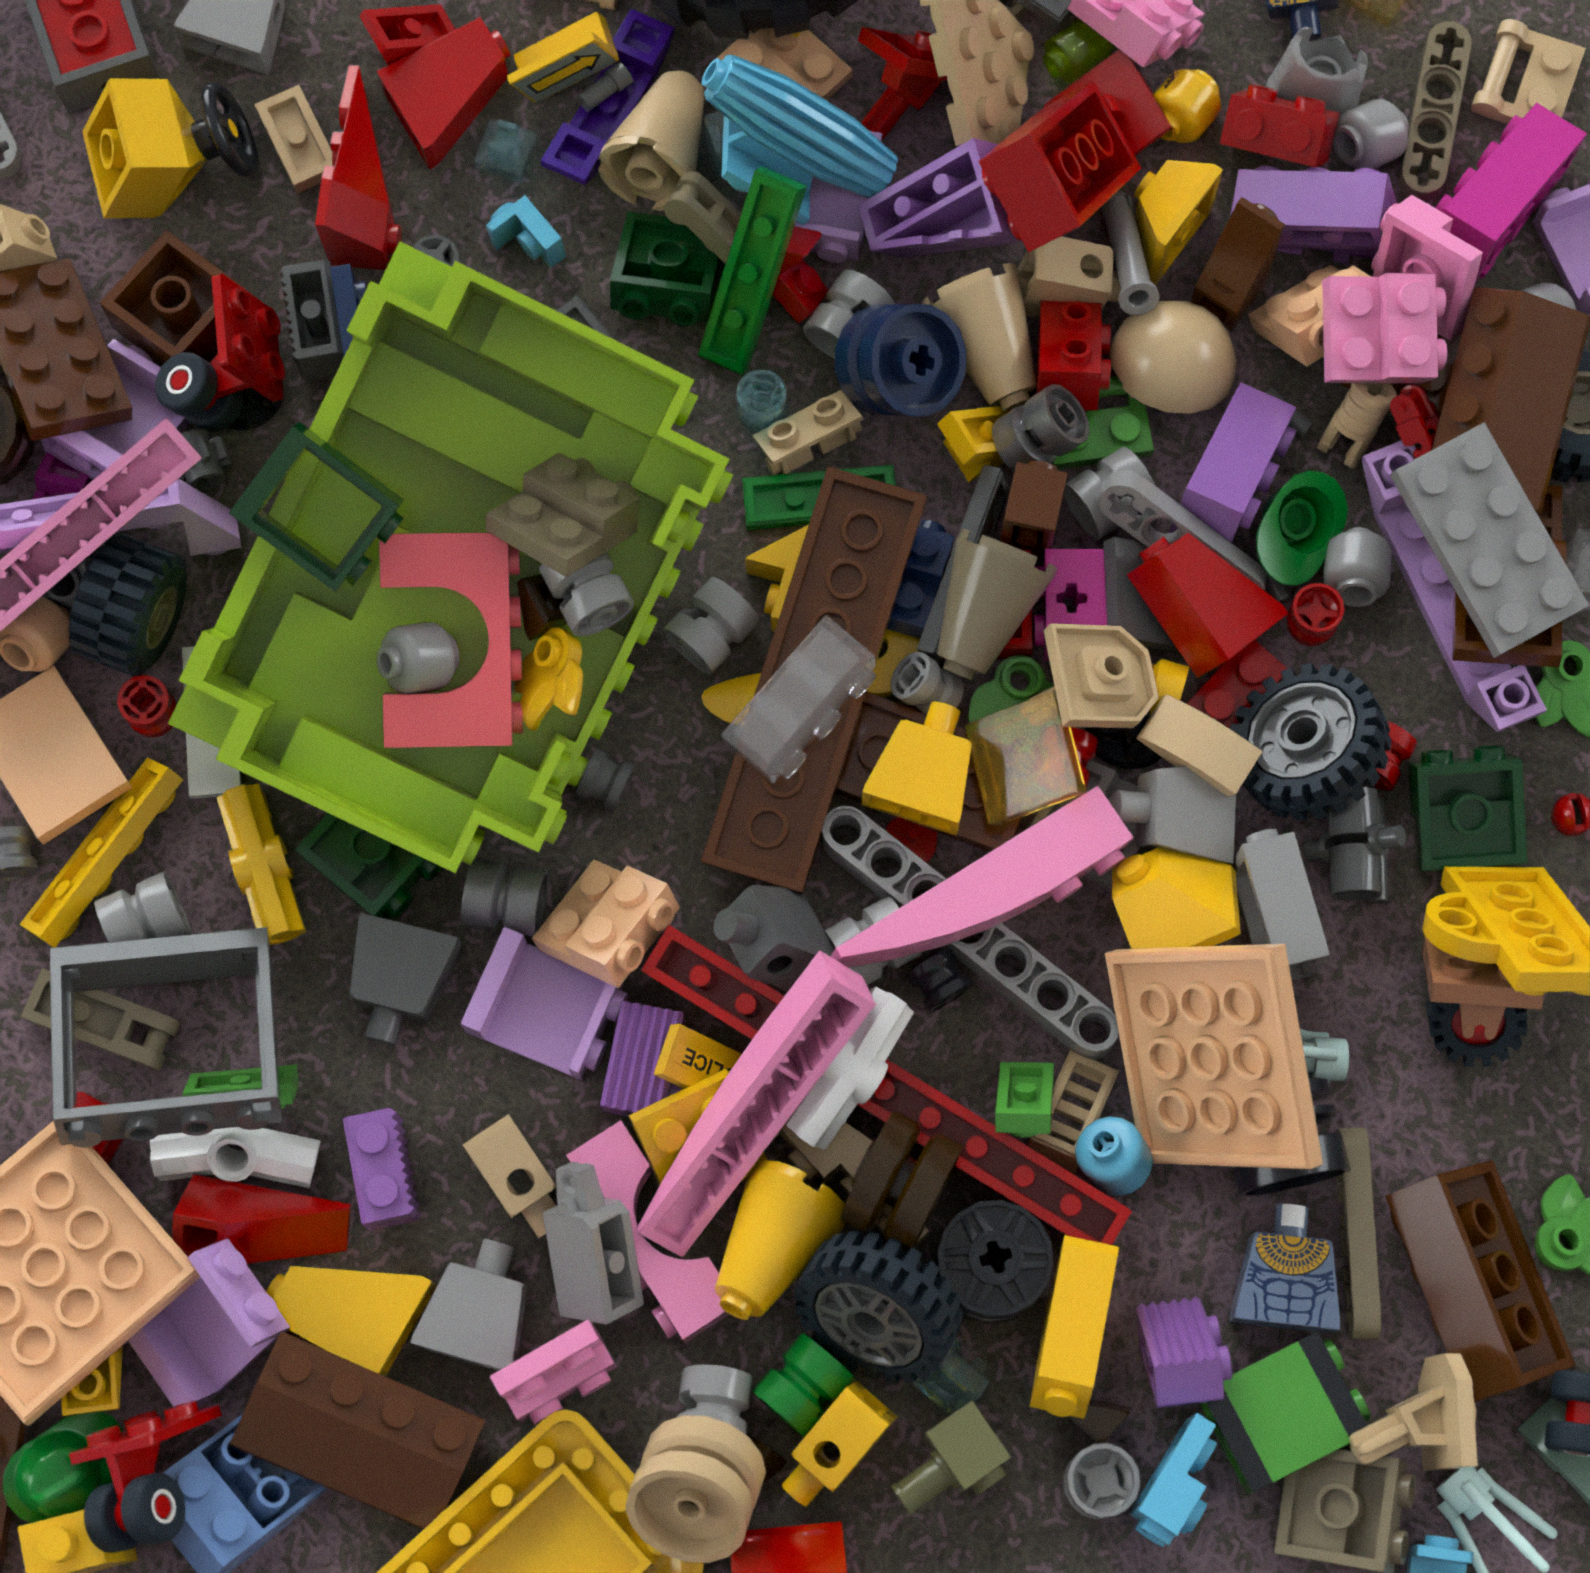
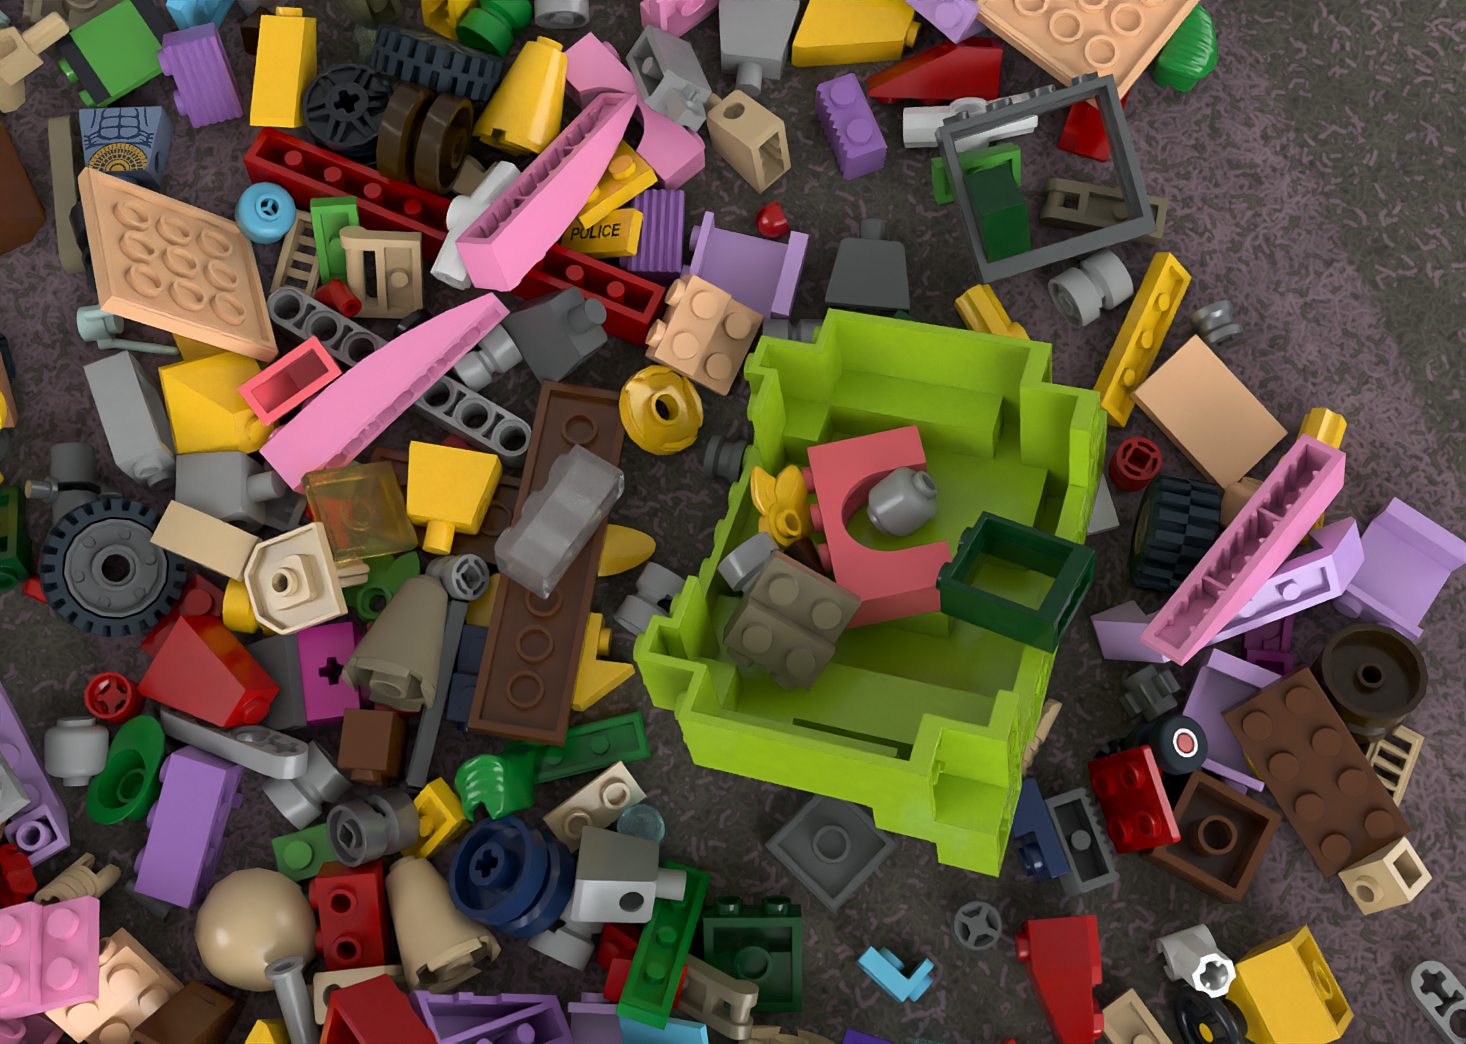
camera: 170 degrees right, 0 degrees up
(223, 196) = (1195, 958): none -> white piece
(231, 995) = (998, 212): none -> dark green slope
(498, 1069) = (771, 221): none -> red hinge
(694, 844) = (640, 414): none -> yellow tile
(789, 335) = (620, 878): none -> light grey torso
(906, 449) = (497, 780): none -> green hair
(958, 1047) = (397, 271): none -> tan plate
(1037, 1042) = (337, 294): none -> red arm
(1086, 914) = (291, 381): none -> coral slope

